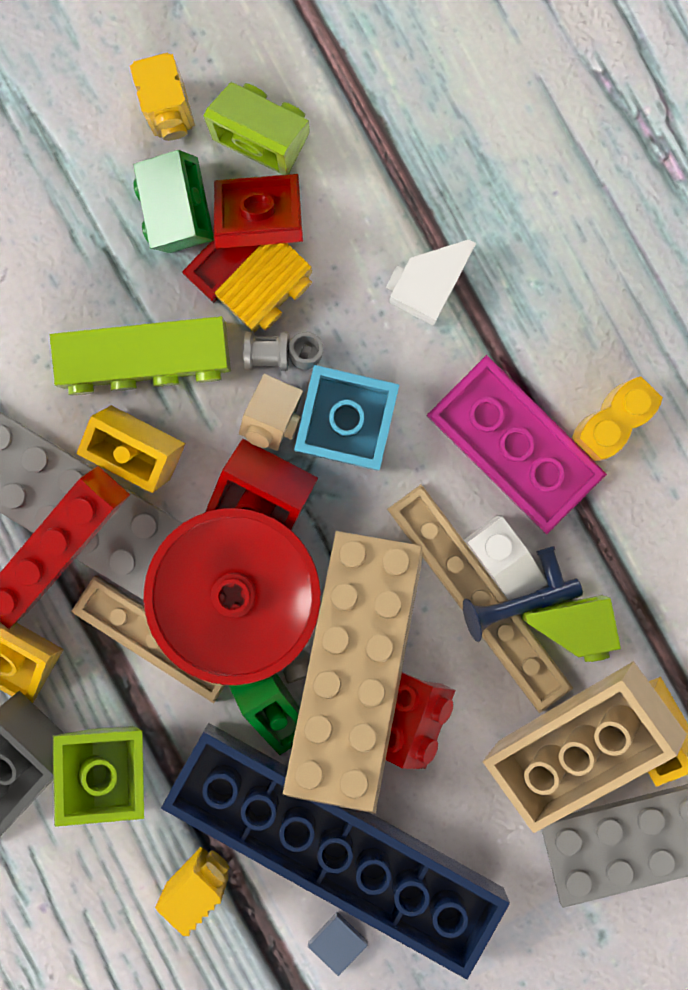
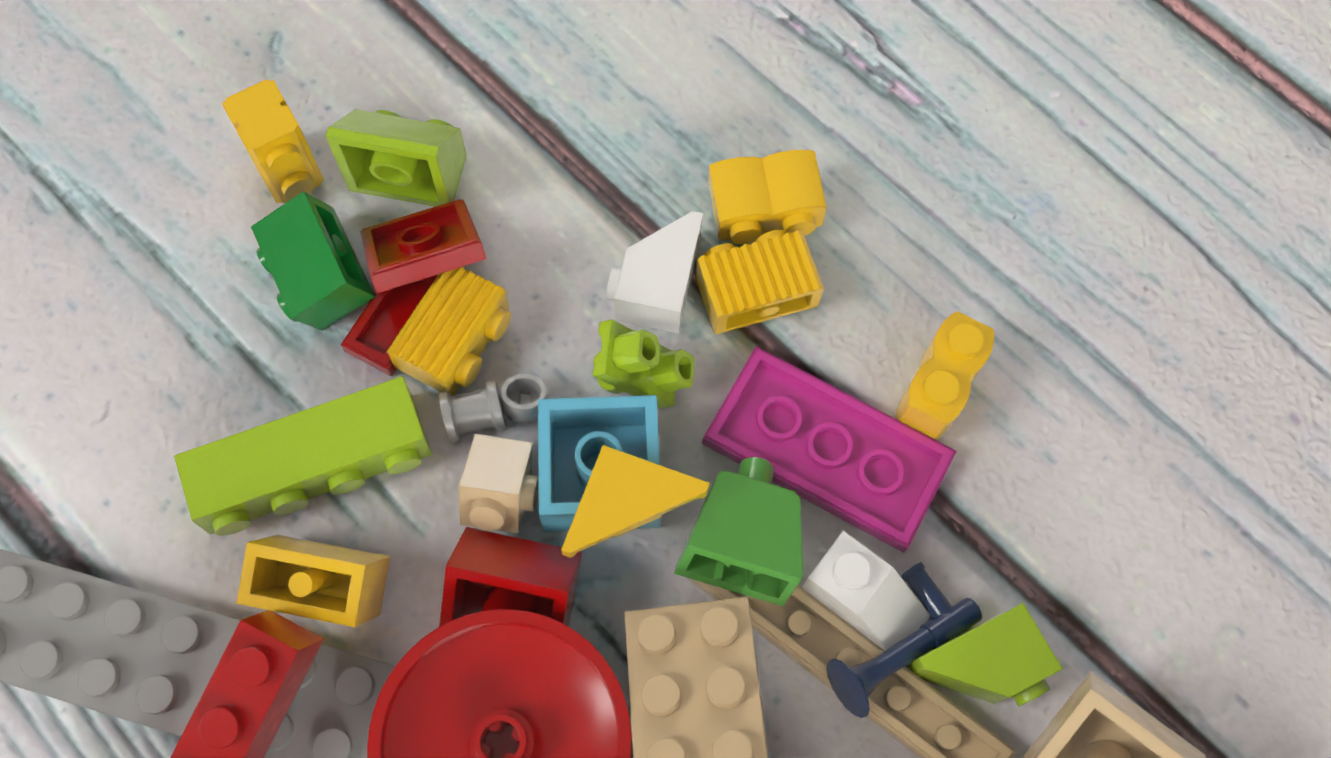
camera: 20 degrees left, 20 degrees down
(357, 454) = (626, 495): none -> yellow tile
(396, 351) = (640, 365): none -> lime hips
(435, 497) = (747, 535): none -> bright green torso
(503, 304) = (758, 280): none -> yellow brick
(531, 236) = (766, 195): none -> yellow brick

